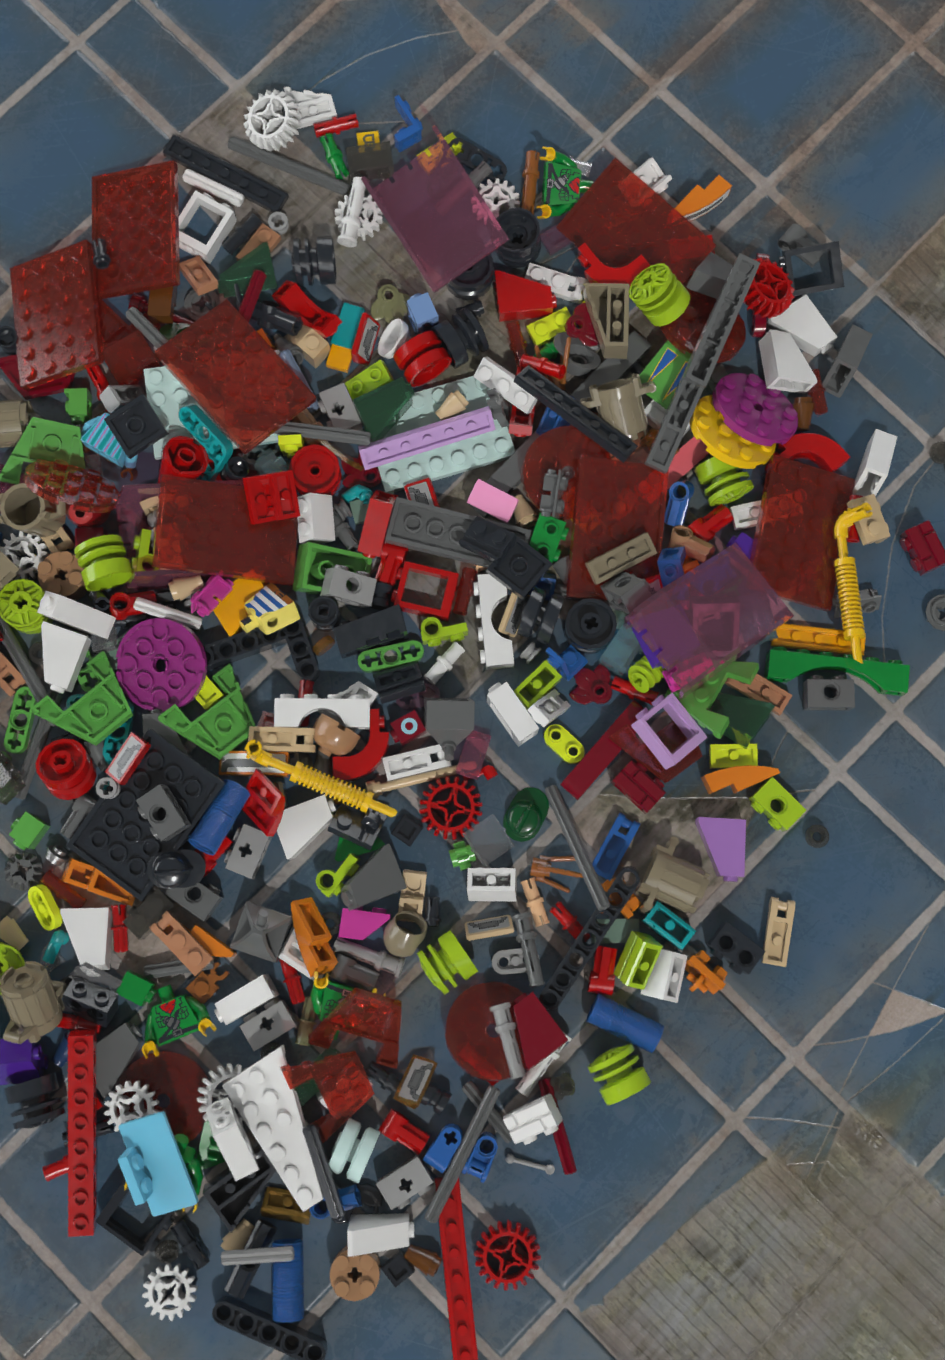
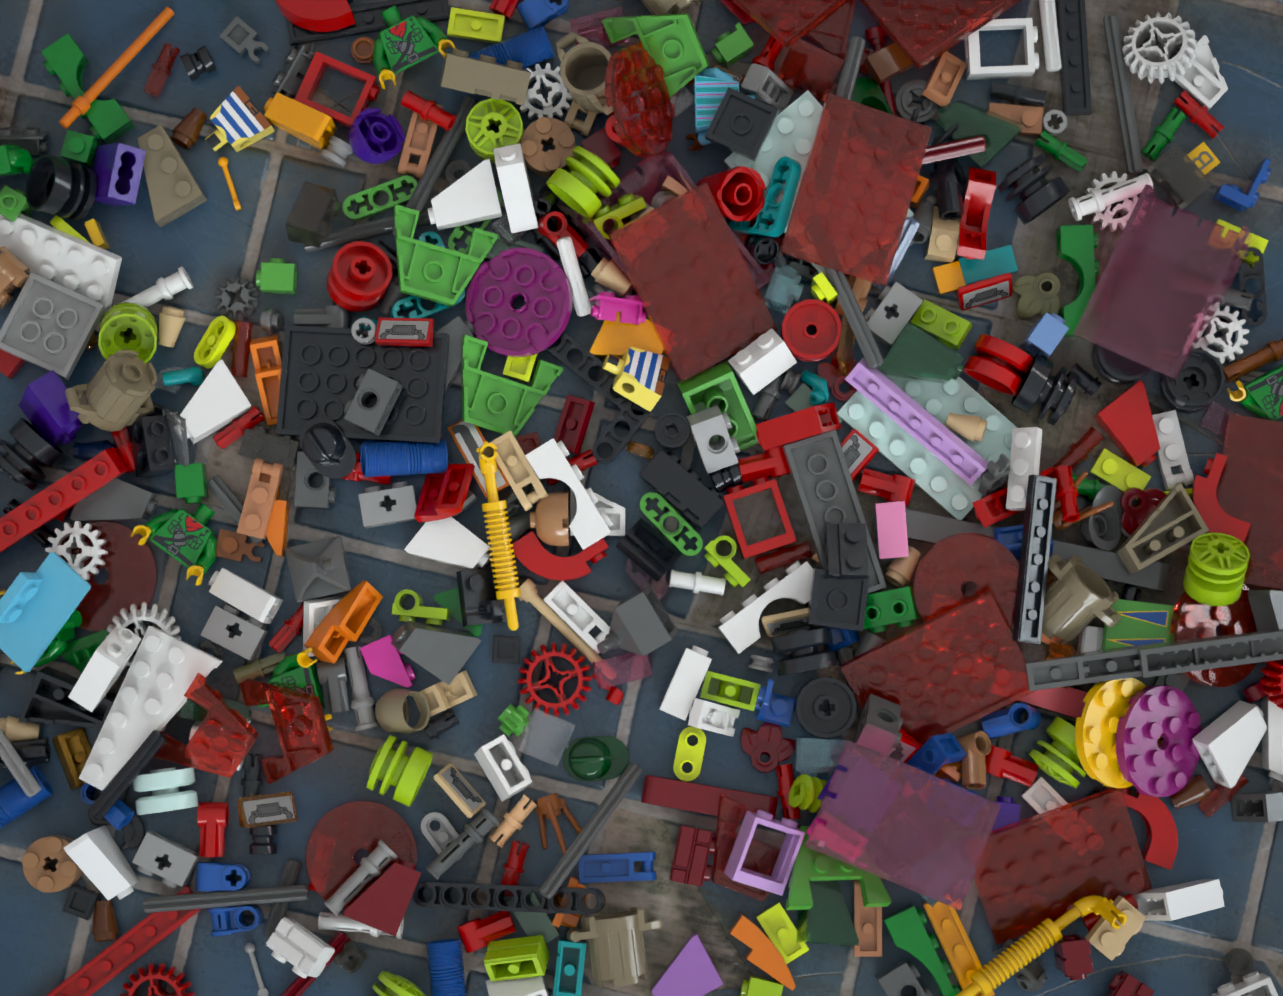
camera: 55 degrees right, 5 degrees up
(271, 497) = (754, 306): red slope -> none
(273, 679) = (574, 423): none -> dark red plate
(301, 229) = (1061, 151): none -> green axle
(375, 259) = (1077, 247): none -> green arch
(393, 338) = (1002, 321): white piece -> none
(407, 728) = (607, 586): dark red brick -> none
(458, 490) = (885, 486): none -> red piece
(556, 484) = (946, 586): dark grey hinge -> none
(621, 558) = (912, 697): dark tan plate -> none
(873, 560) = (1073, 956): none -> dark red brick

